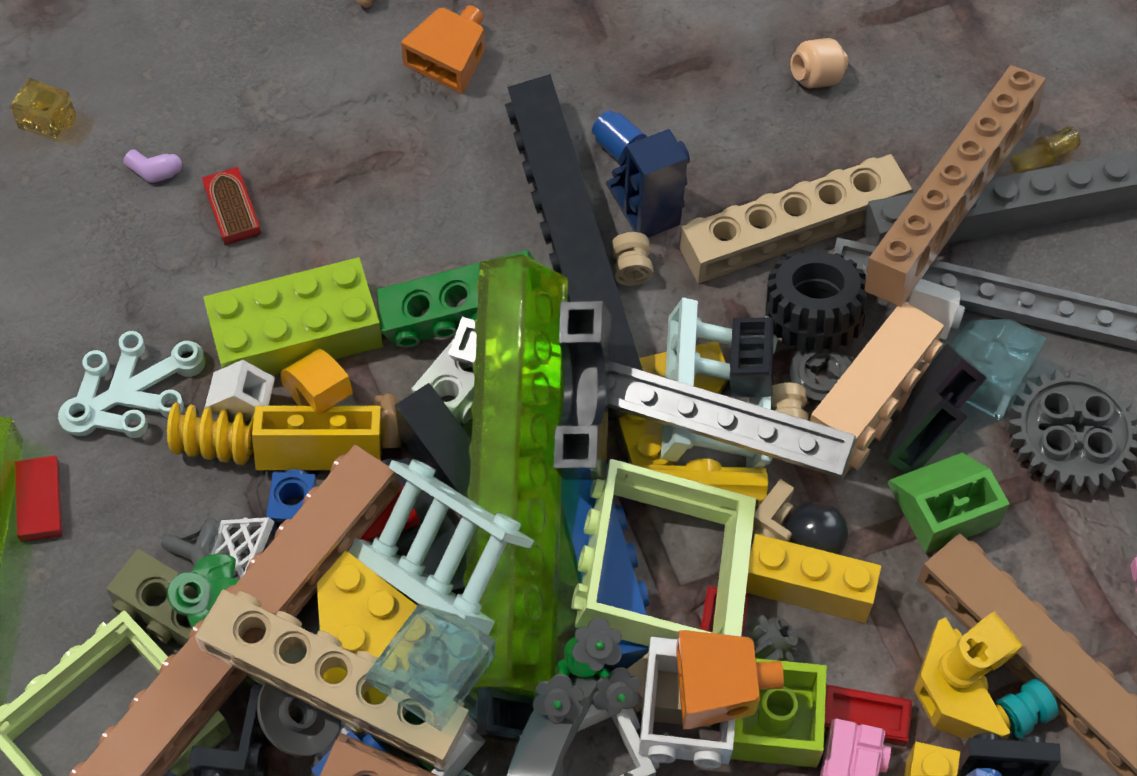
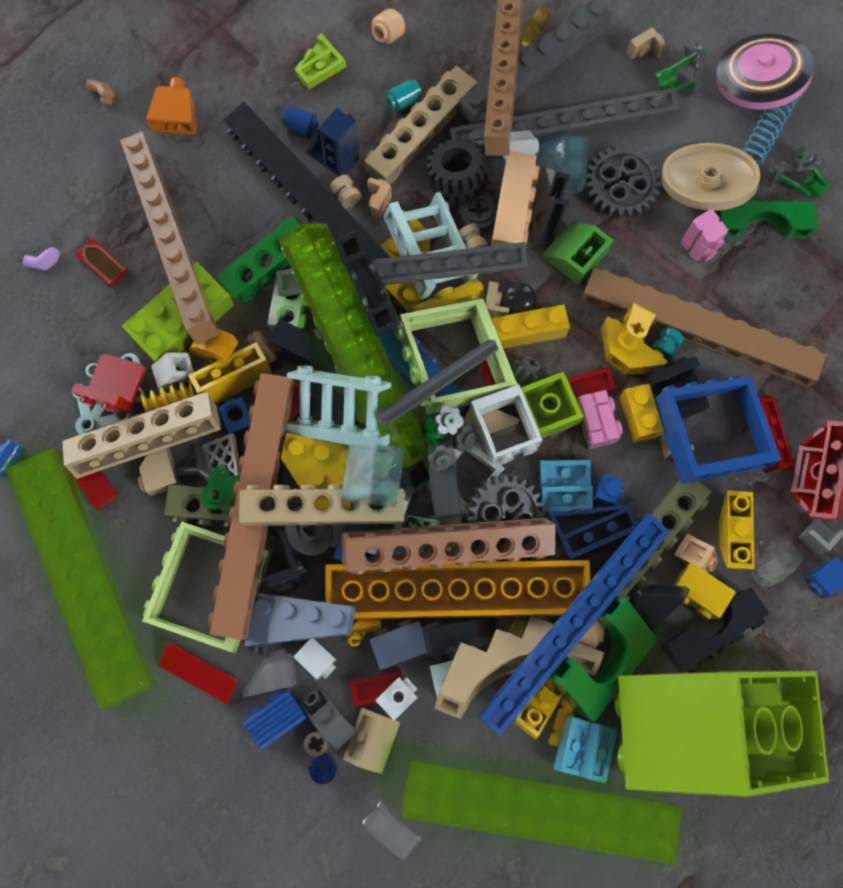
camera: 30 degrees left, 15 degrees up
(138, 520) = (158, 472): none -> tan slope
(141, 458) = (141, 435): none -> tan brick
(144, 372) = (112, 384): none -> bracket
(336, 213) = (170, 239): none -> medium nougat brick
(610, 579) = (437, 382): none -> dark grey axle
(683, 282) = (380, 196): none -> light nougat bracket
(691, 72) = (319, 63): none -> lime wing
(721, 677) = (519, 406): orange torso -> none
(746, 373) = (448, 232): black slope -> none
(792, 164) = (404, 95): none -> teal brick

